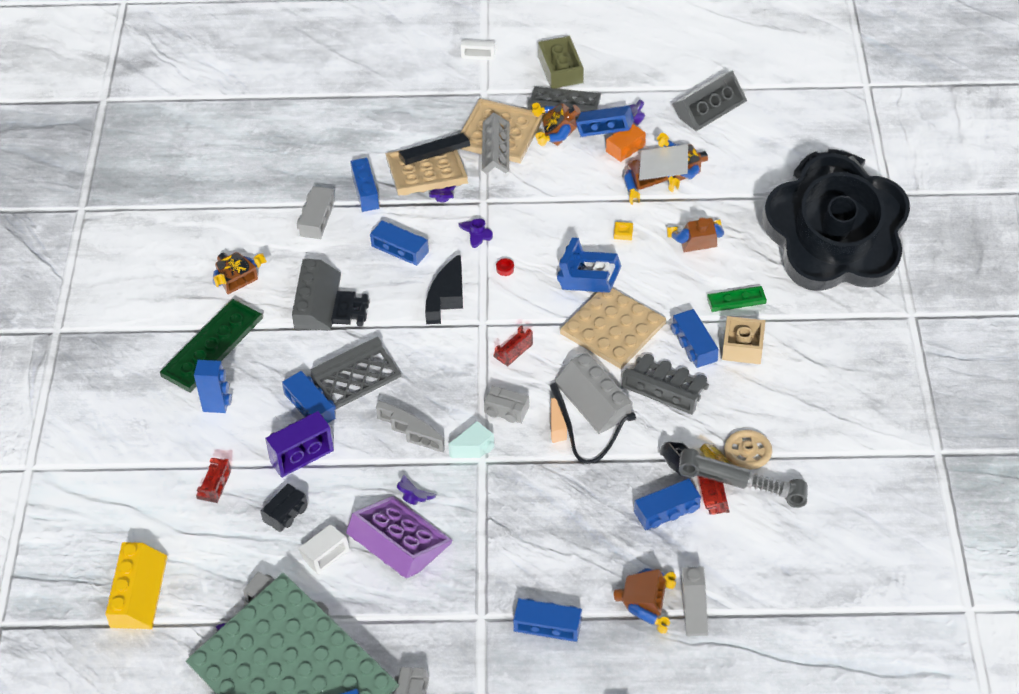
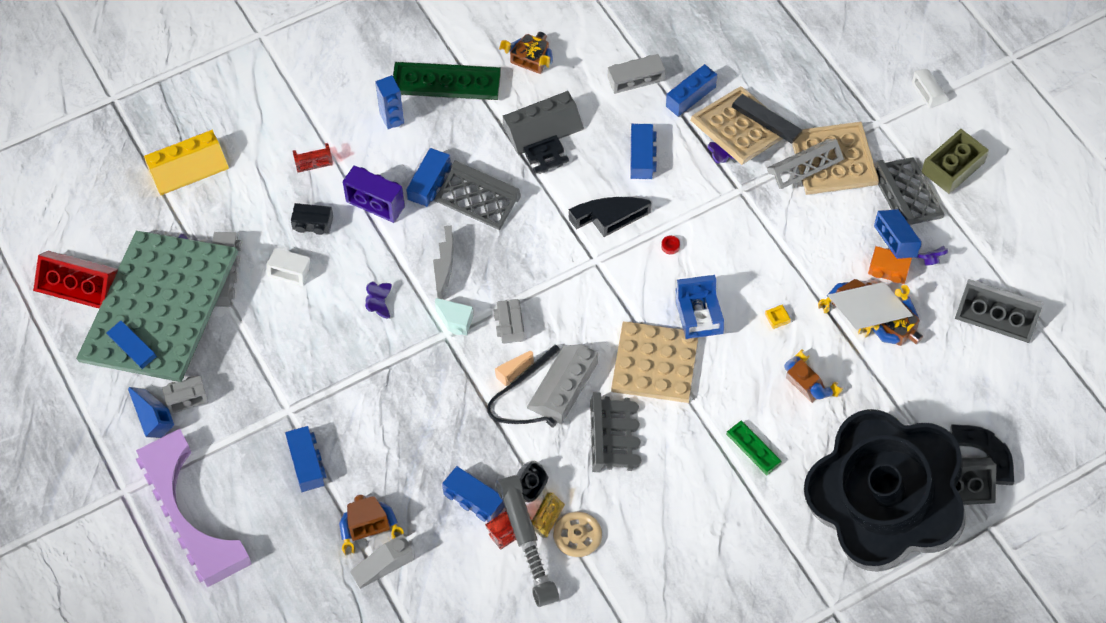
camera: 60 degrees right, 10 degrees up
(397, 536) = (329, 311): medium lavender slope -> none
(477, 231) = (698, 202): dark purple animal -> none
(514, 347) = (579, 297): clear red hinge -> none
(557, 121) = (869, 198): torso -> none
(694, 338) = (677, 432): blue brick -> none
(743, 340) = (696, 473): tan brick -> none

